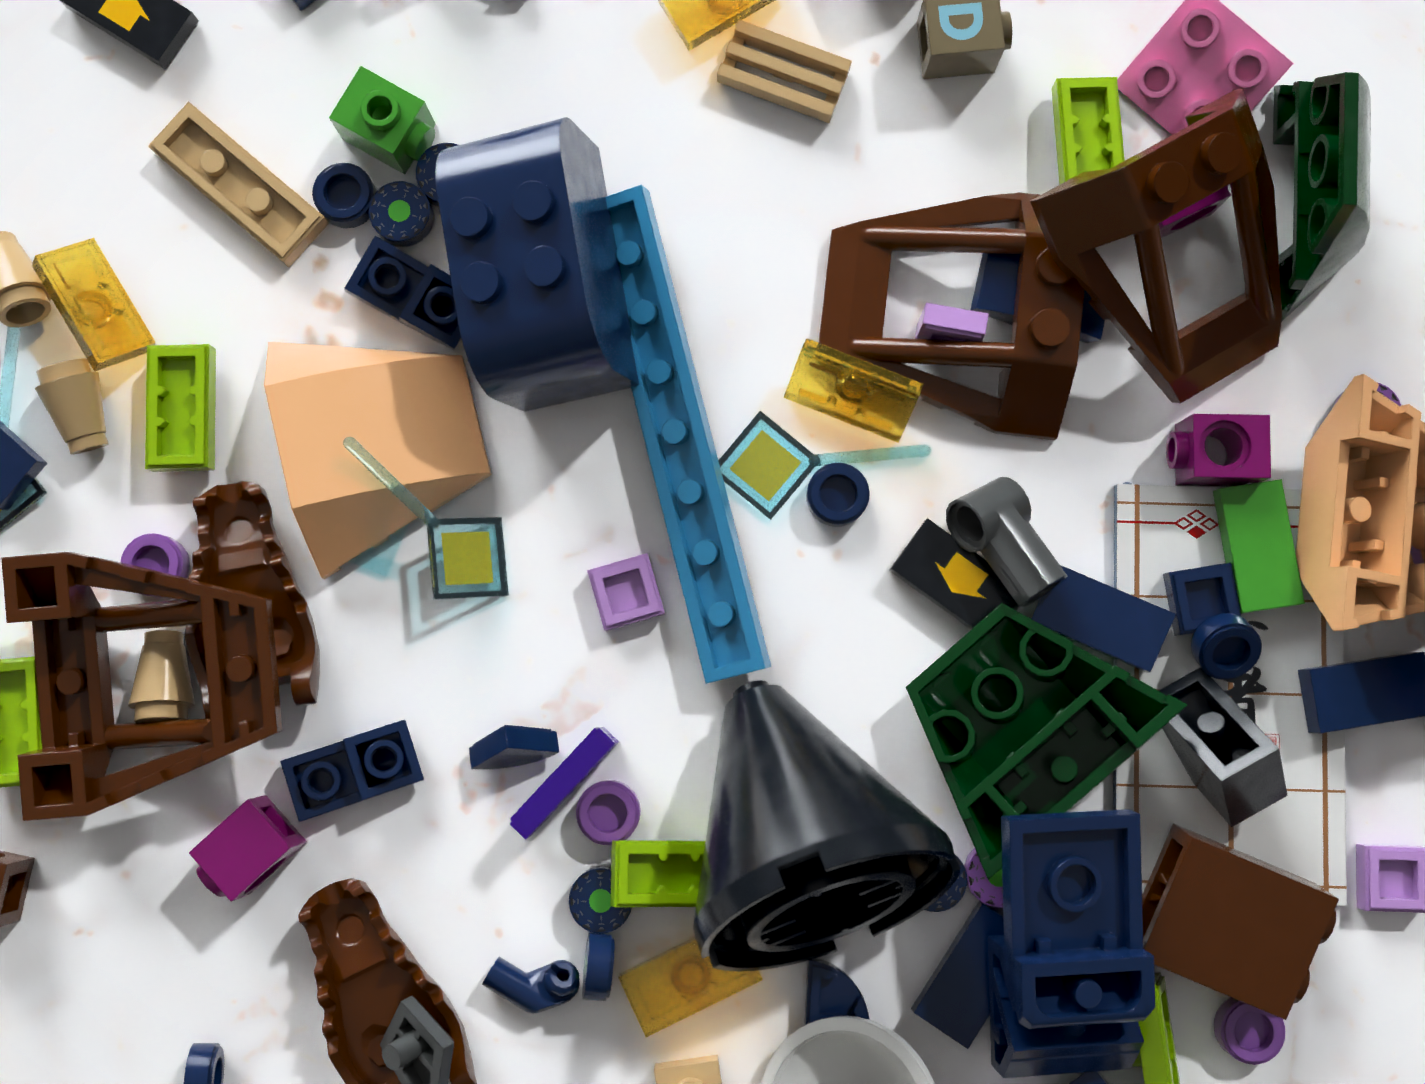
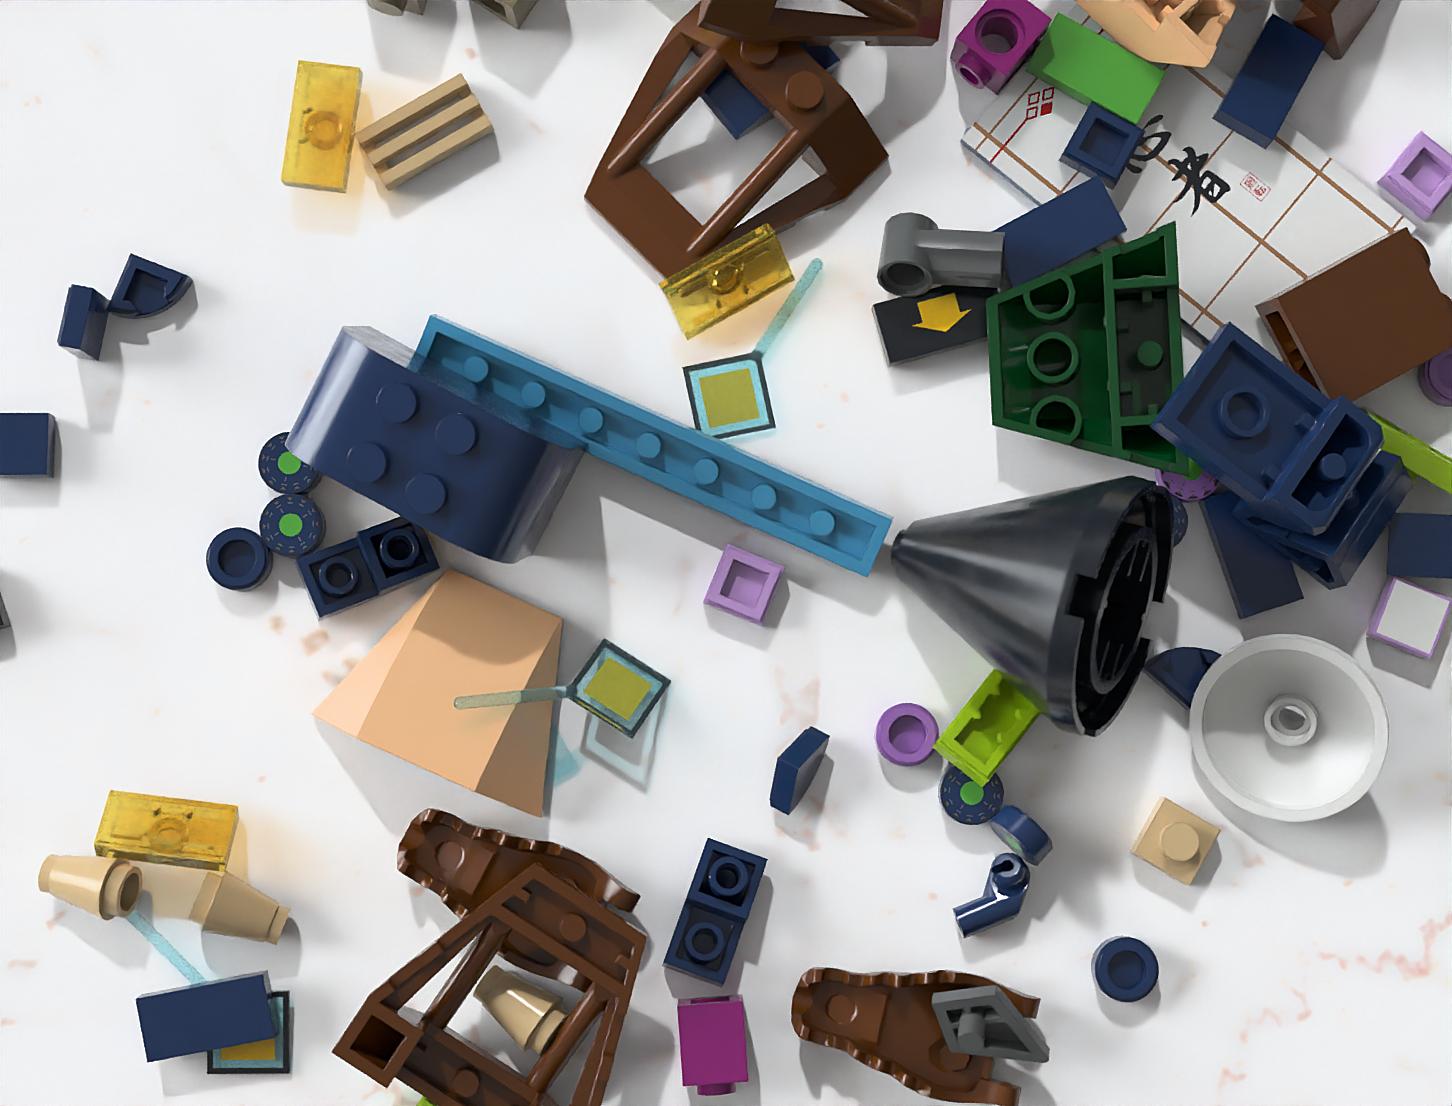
camera: 55 degrees left, 0 degrees up
(158, 554) = (413, 936): medium lavender tile -> none
(180, 408) = (310, 825): lime plate -> none
(238, 184) = (159, 638): tan tile -> none
(384, 120) = (208, 478): bright green brick -> none
(563, 781) = (856, 748): dark purple tile -> none
(678, 986) = (1084, 779): clear yellow plate -> none
(837, 494) = (798, 359): dark blue tile -> none
(951, 323) = (736, 165): lavender tile -> none
(1224, 749) = (1229, 222): black slope -> none
(1226, 646) = (1152, 157): dark blue tile -> none

